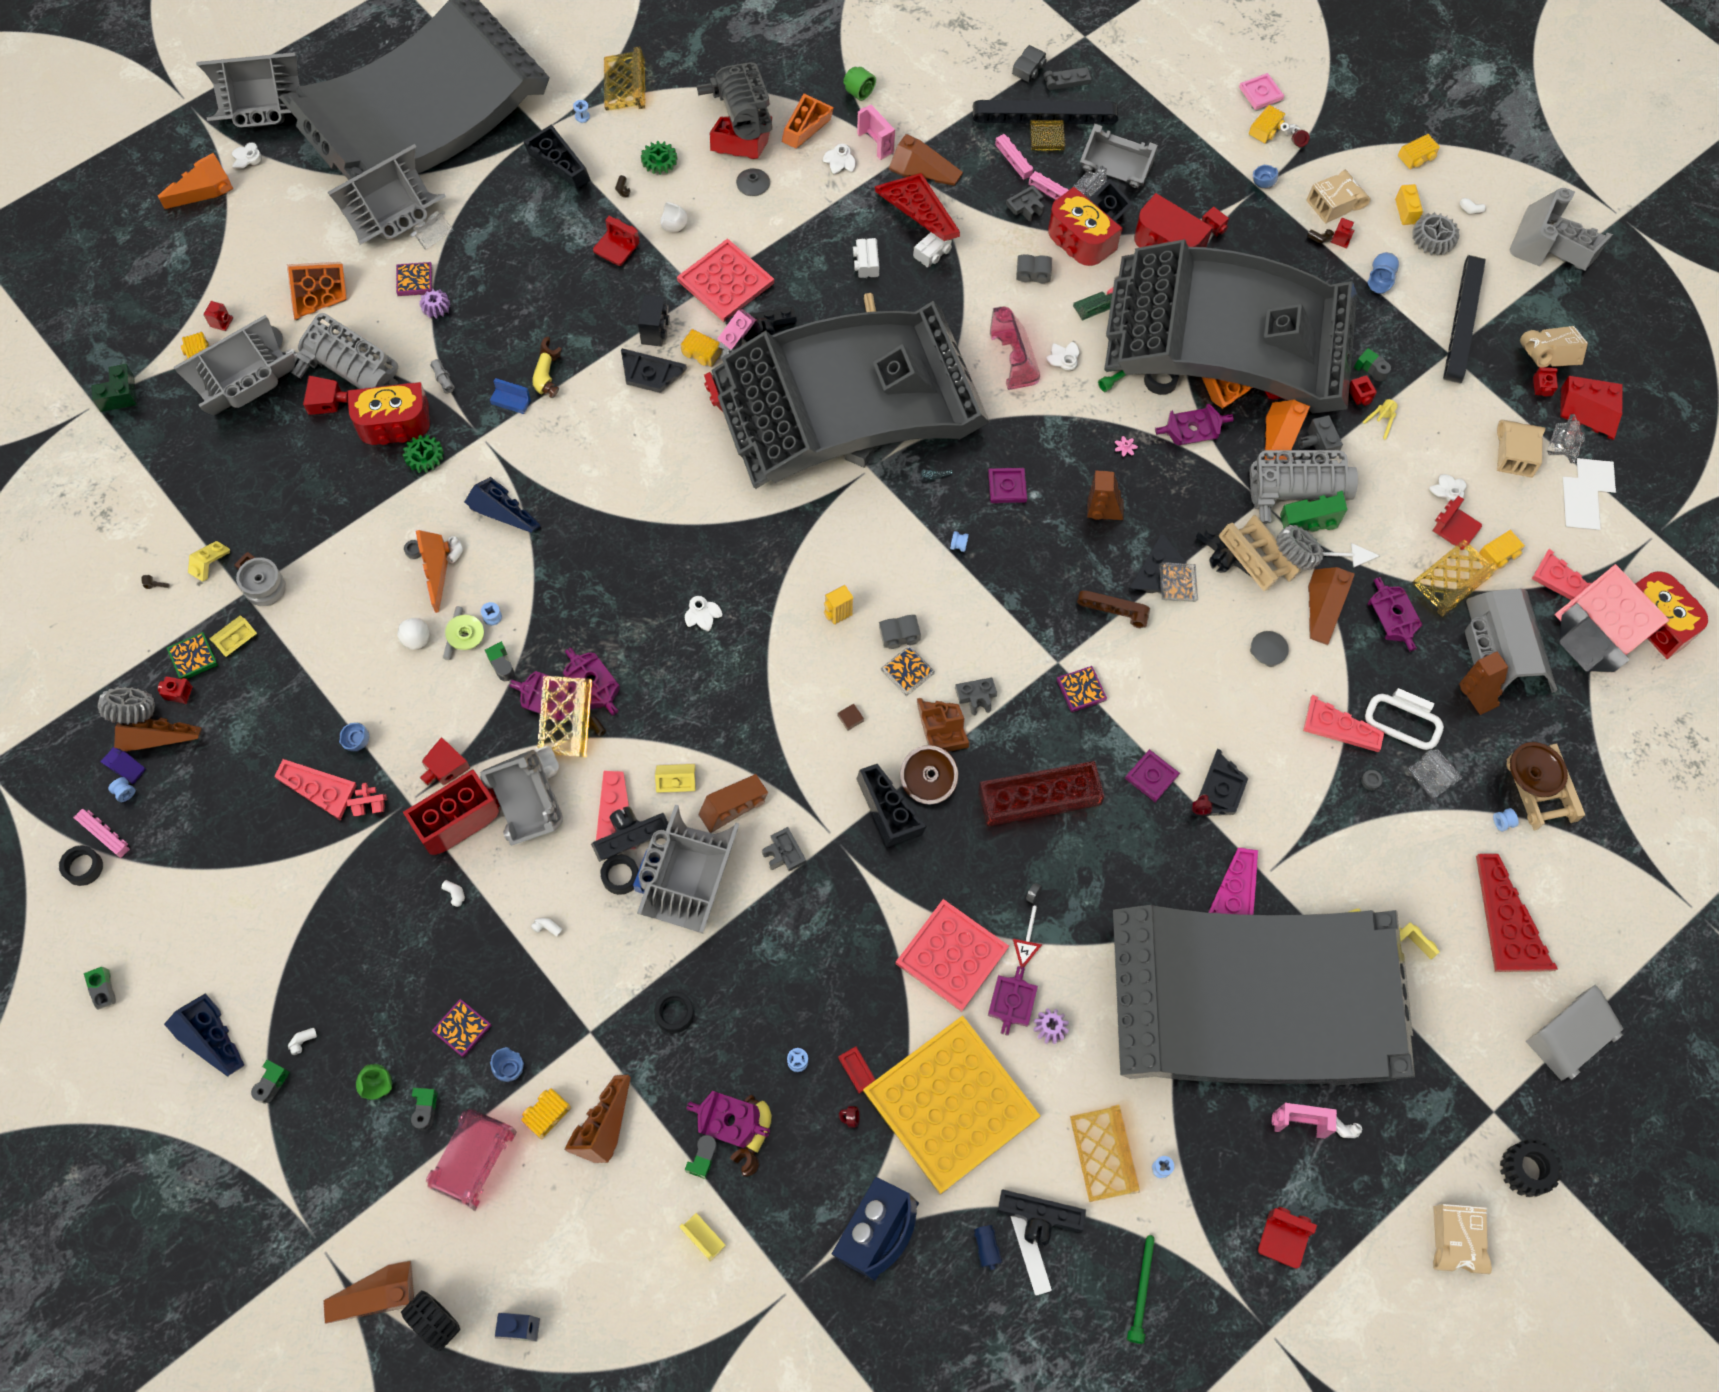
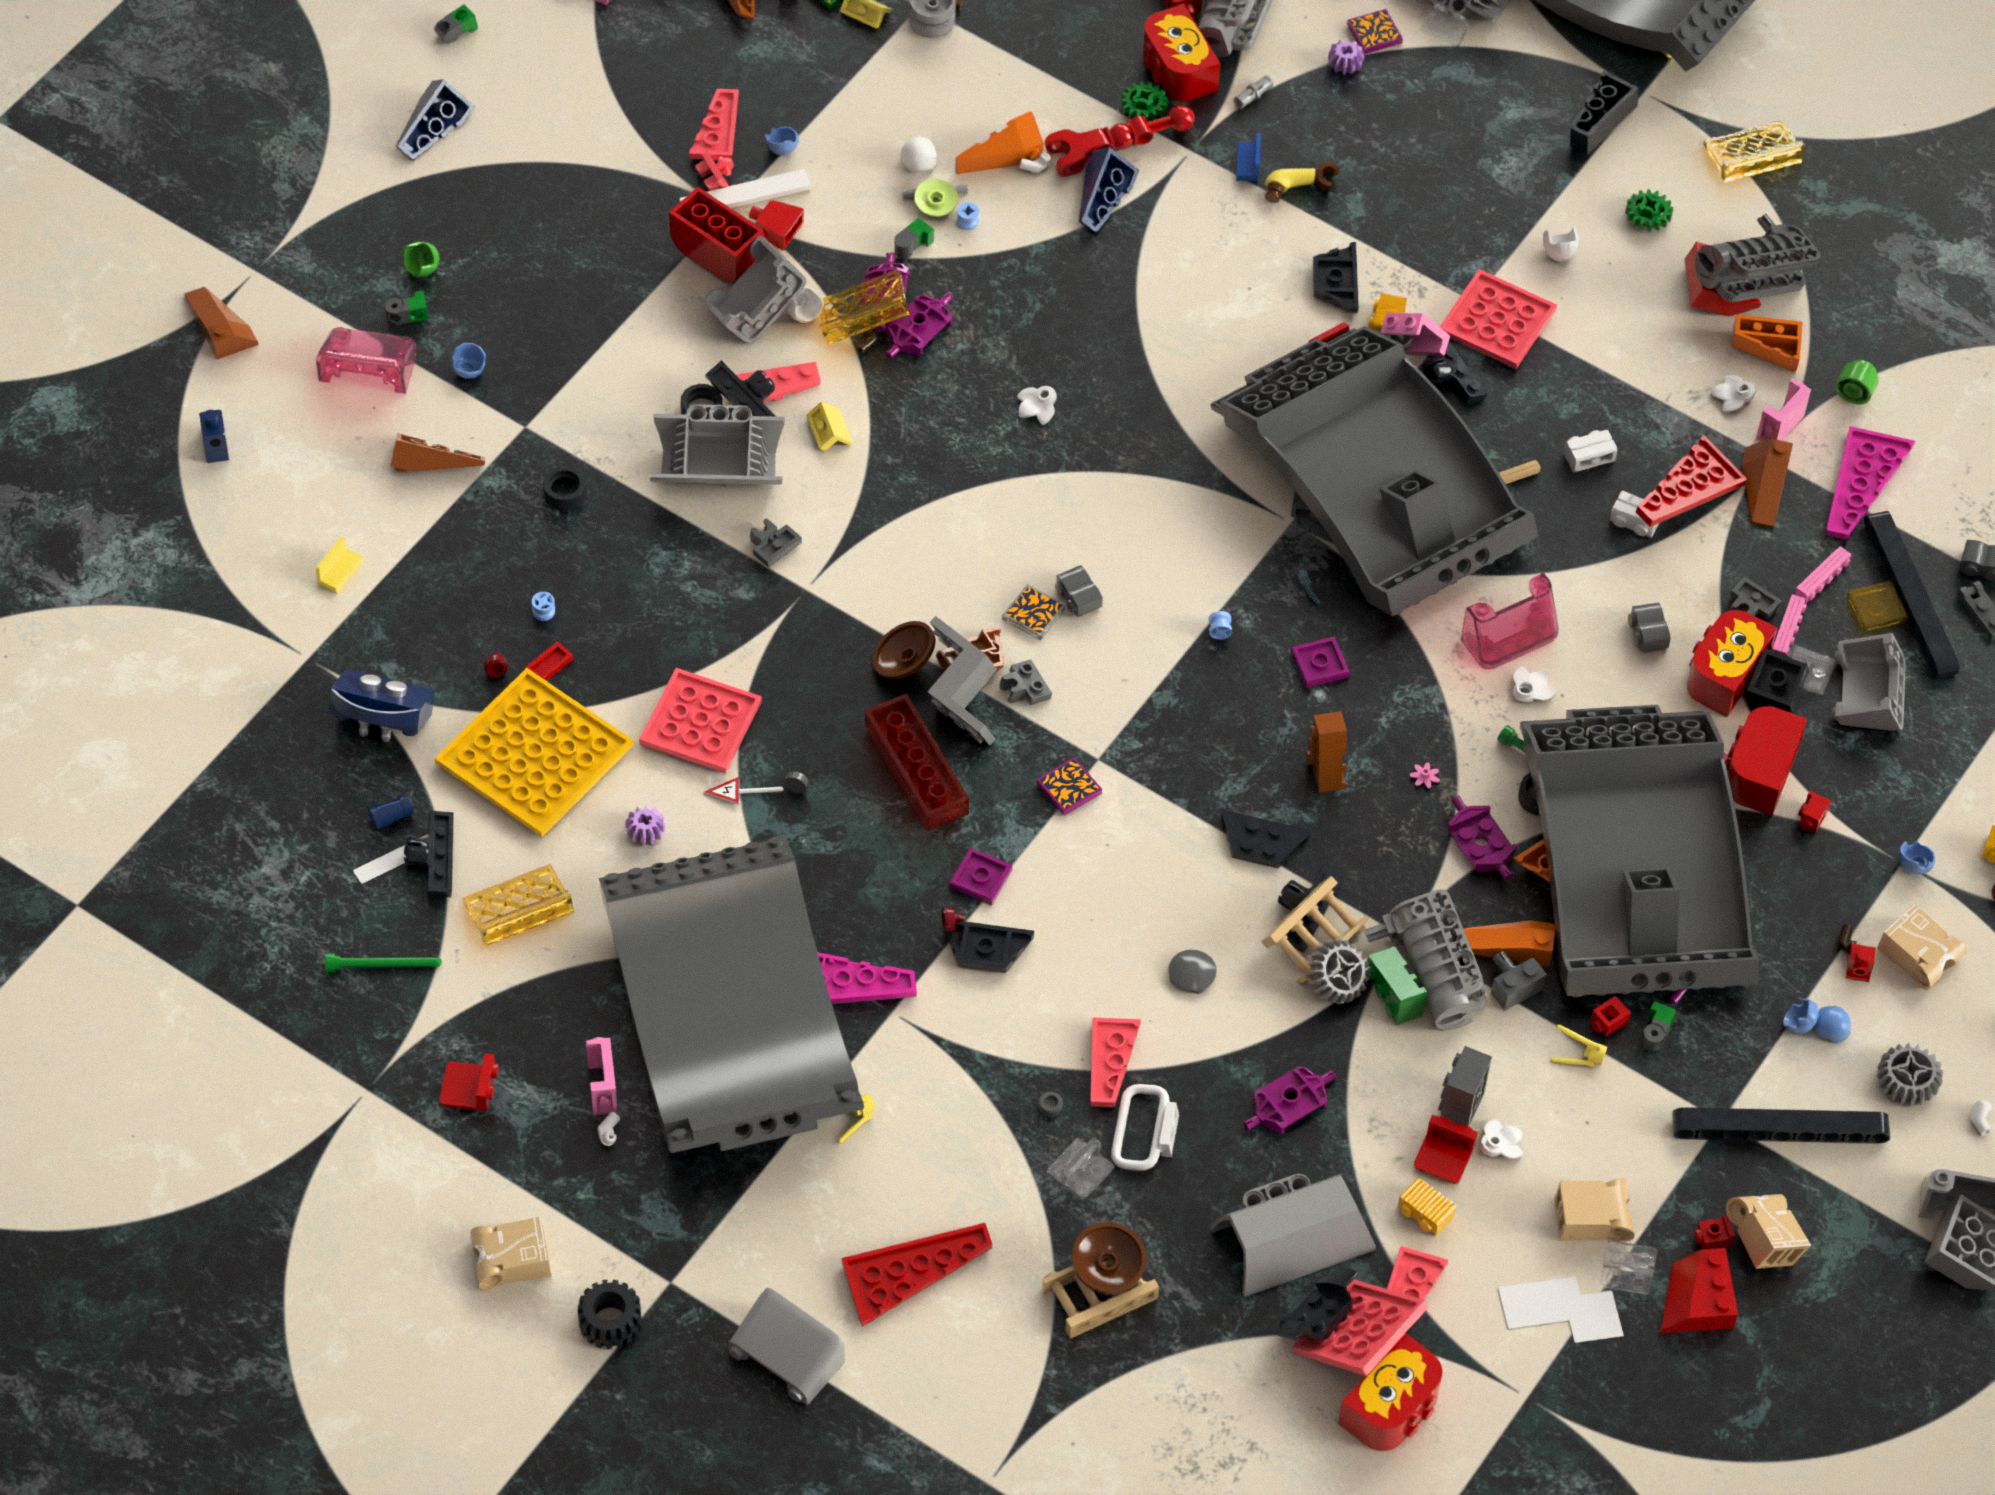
camera: 75 degrees right, 10 degrees down
(270, 1082) = (400, 182): leg -> none
(298, 1039) = (450, 192): white arm -> none
(398, 783) = (762, 189): none -> white tile
(430, 1320) = (202, 363): black tyre -> none
(453, 479) = (1120, 136): none -> red piece
(456, 892) = (639, 274): white arm -> none
(461, 1028) = (497, 318): tile -> none
(545, 1113) = (428, 407): yellow brick -> none
(546, 923) = (627, 358): white arm -> none
(586, 116) = (1685, 114): light blue bush -> none
(617, 242) = (1504, 202): red bracket -> none
(621, 188) = (1590, 186): dark brown arm -> none
(653, 320) = (1401, 258): black brick -> none
(704, 1157) = (419, 548): leg -> none
(714, 1116) = (461, 553): magenta plate -> none
(732, 802) = (814, 480): dark orange wedge -> none
(752, 1161) = (466, 587): piece -> none
(753, 182) = (1660, 315): dark grey dish -> none
(838, 604) = (1087, 520): yellow brick -> none
(850, 717) = (956, 570): reddish brown tile -> none
(890, 811) = (850, 623): black wedge -> none
(937, 107) = (1864, 472): none -> dark pink wing
(979, 737) = (961, 681): none -> light grey bracket
(1012, 1000) = (664, 786): magenta plate -> none
(1093, 305) = (1618, 696): clear green panel -> none
(1137, 612) = (1188, 824): reddish brown beam -> none
(1168, 1168) = (516, 956): light blue bush -> none
(1178, 582) = (1245, 855): clear tile -> none
(1326, 598) = (1284, 1023): dark orange wedge -> none
(1359, 555) = (1362, 1054): white piece -> none
(1409, 204) = (1945, 1034): yellow brick -> none
(1419, 939) = (861, 1158): light yellow bracket -> none
(1422, 492) = (1465, 1086): none -> dark grey brick
(1463, 590) = (1358, 1175): clear yellow fence -> none
(1484, 682) = (1214, 1192): dark orange wedge -> none
(1505, 819) = (1041, 1249): light blue wheel -> none

